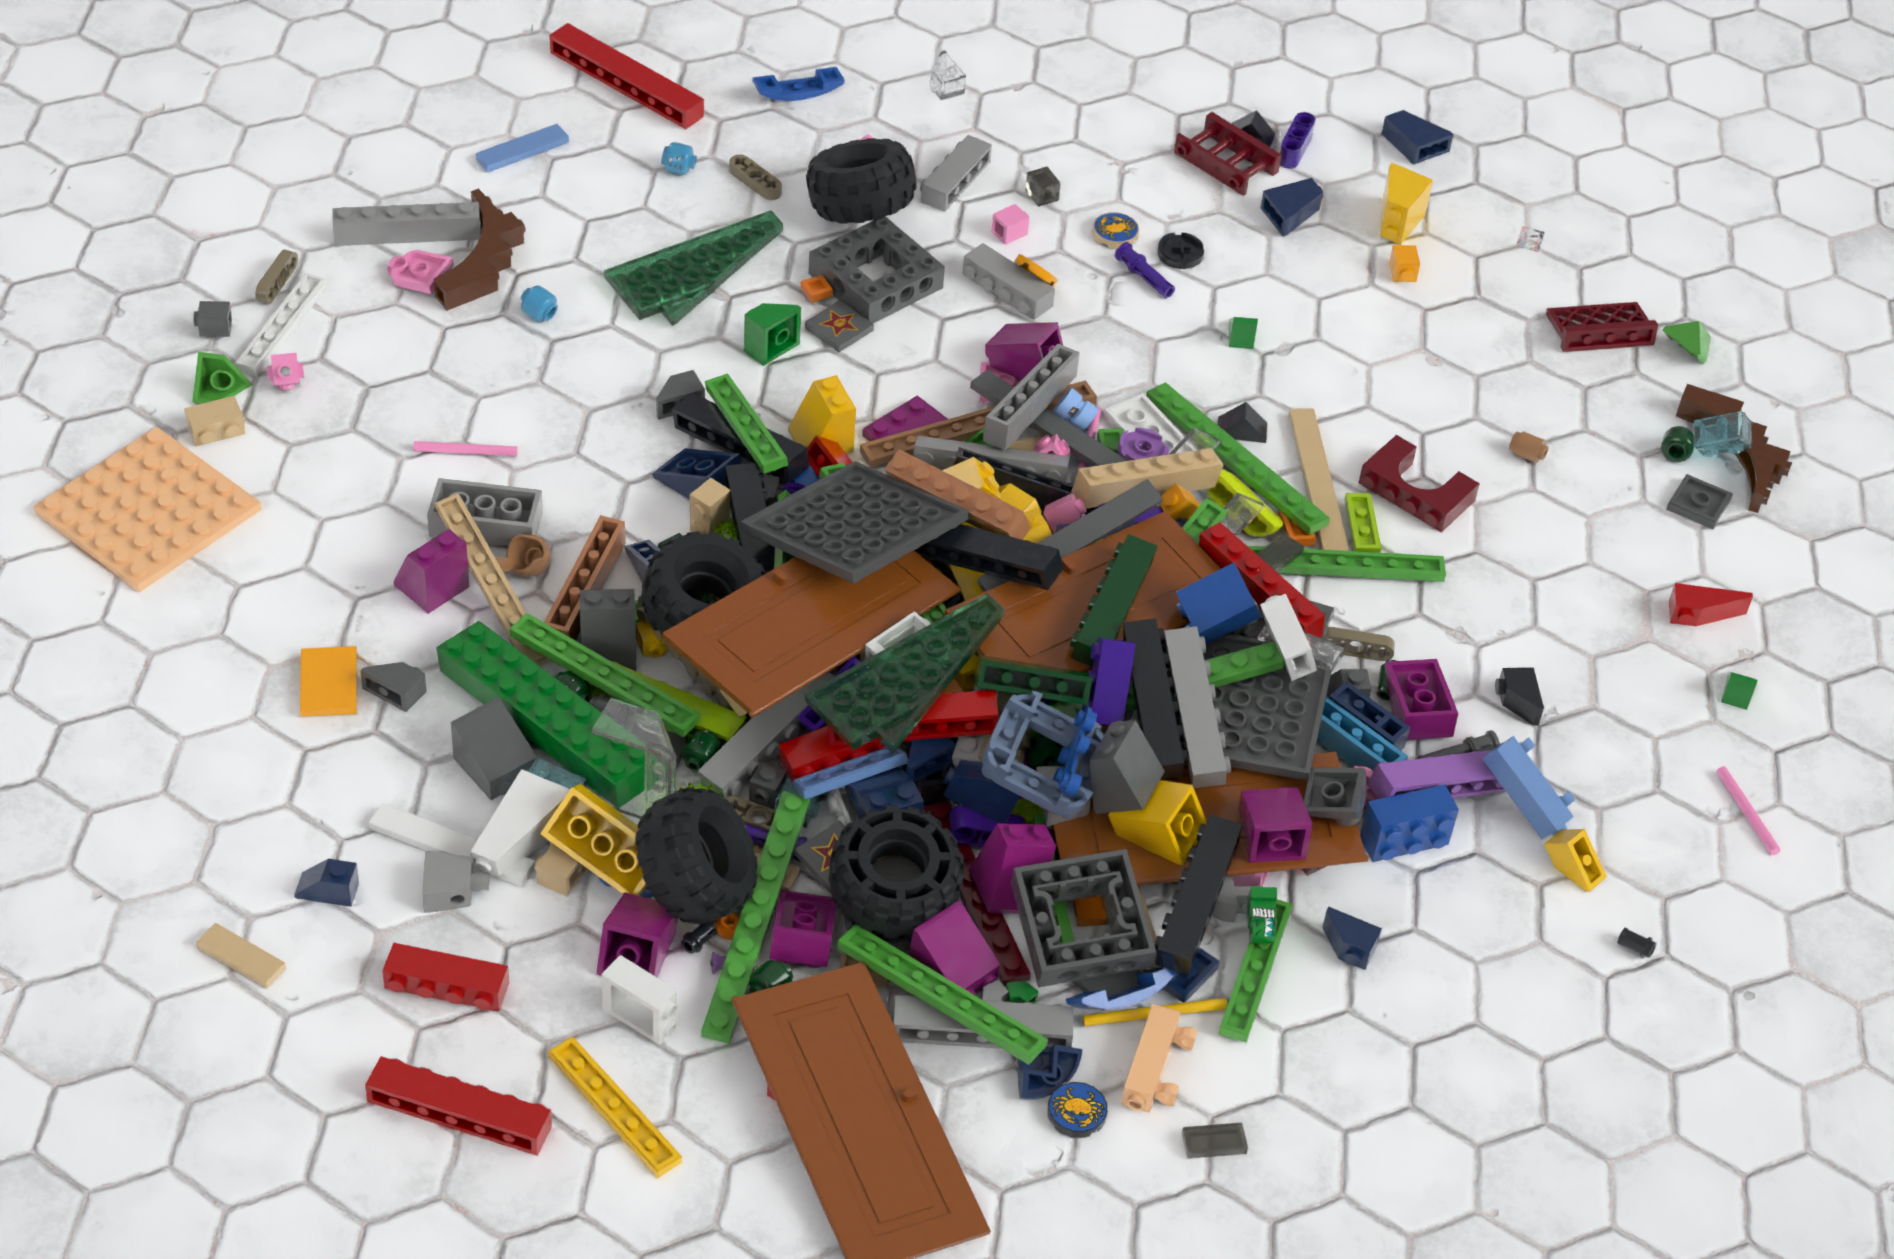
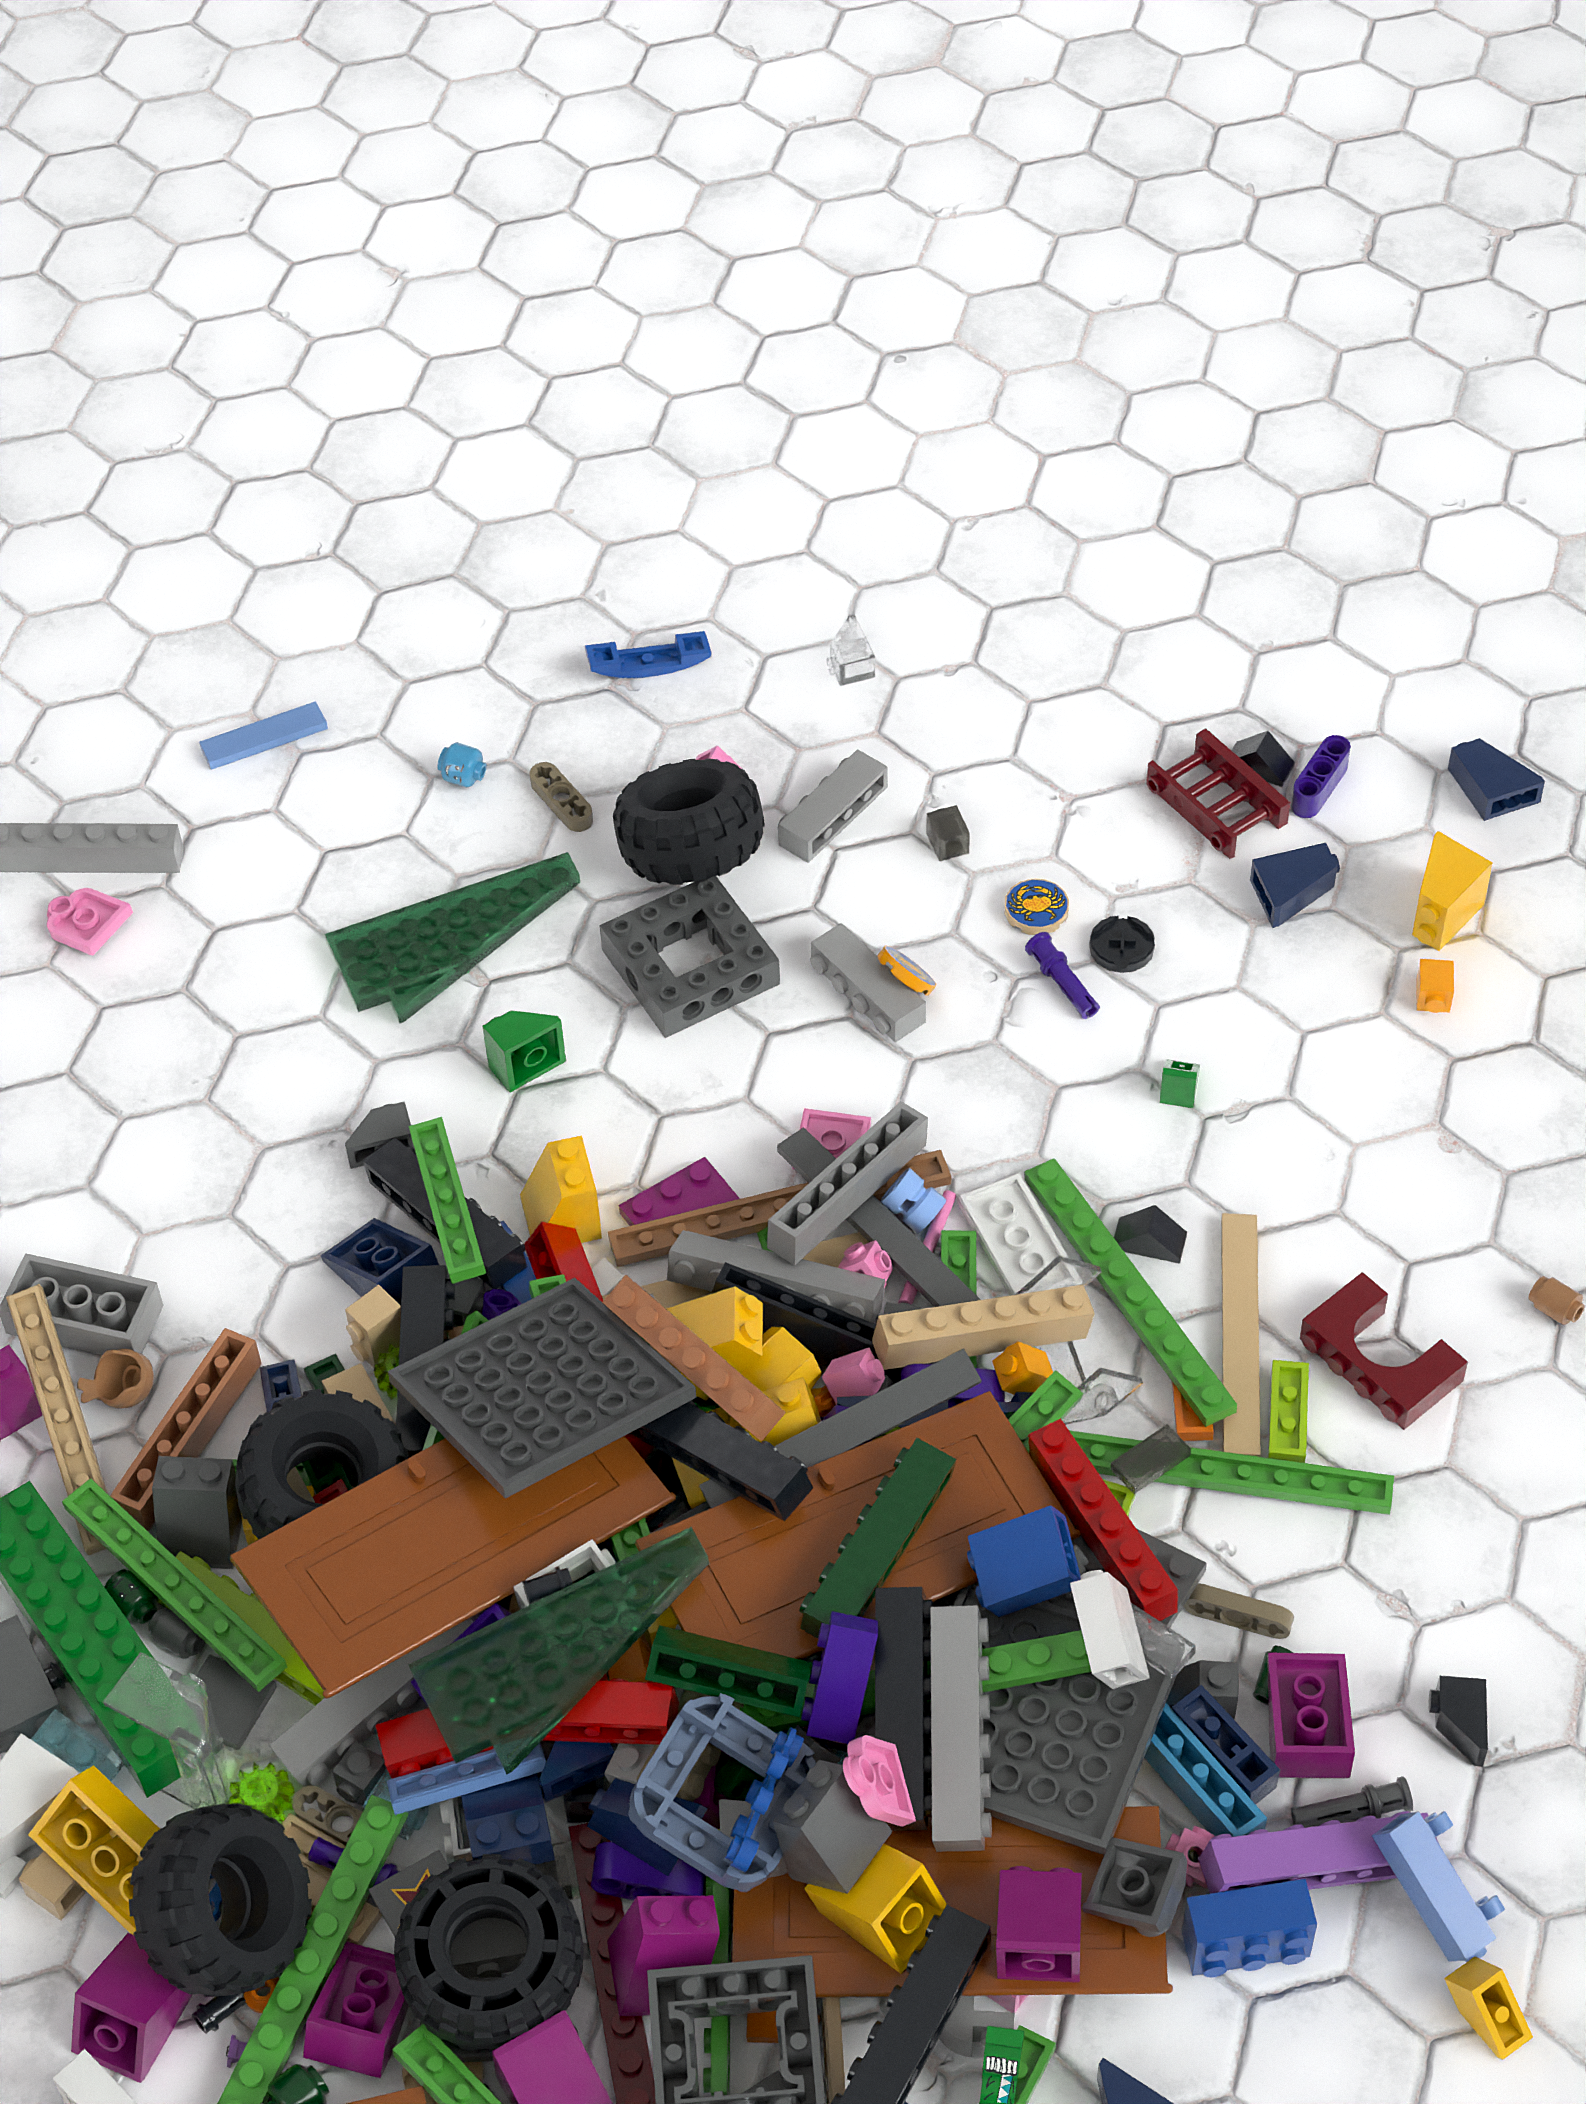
camera: 15 degrees right, 5 degrees up
(461, 448) = (85, 1198): bright pink bar -> none
(480, 270) = (158, 928): reddish brown arch -> none
(539, 303) = (227, 981): dark azure head -> none
(627, 76) = (423, 632): red brick -> none
(700, 748) = (283, 1707): dark green head -> none
(816, 288) = (604, 978): orange plate -> none
(839, 326) = (623, 1038): dark grey tile -> none
(890, 638) = (546, 1585): none -> black pin
(1010, 224) = (890, 890): bright pink brick -> none
(1021, 346) = (861, 1092): magenta slope -> none
(1131, 443) = (999, 1252): medium lavender plate -> none
(1155, 735) = (878, 1780): none -> bright pink plate
(1227, 486) = (1115, 1348): neon yellow brick -> none

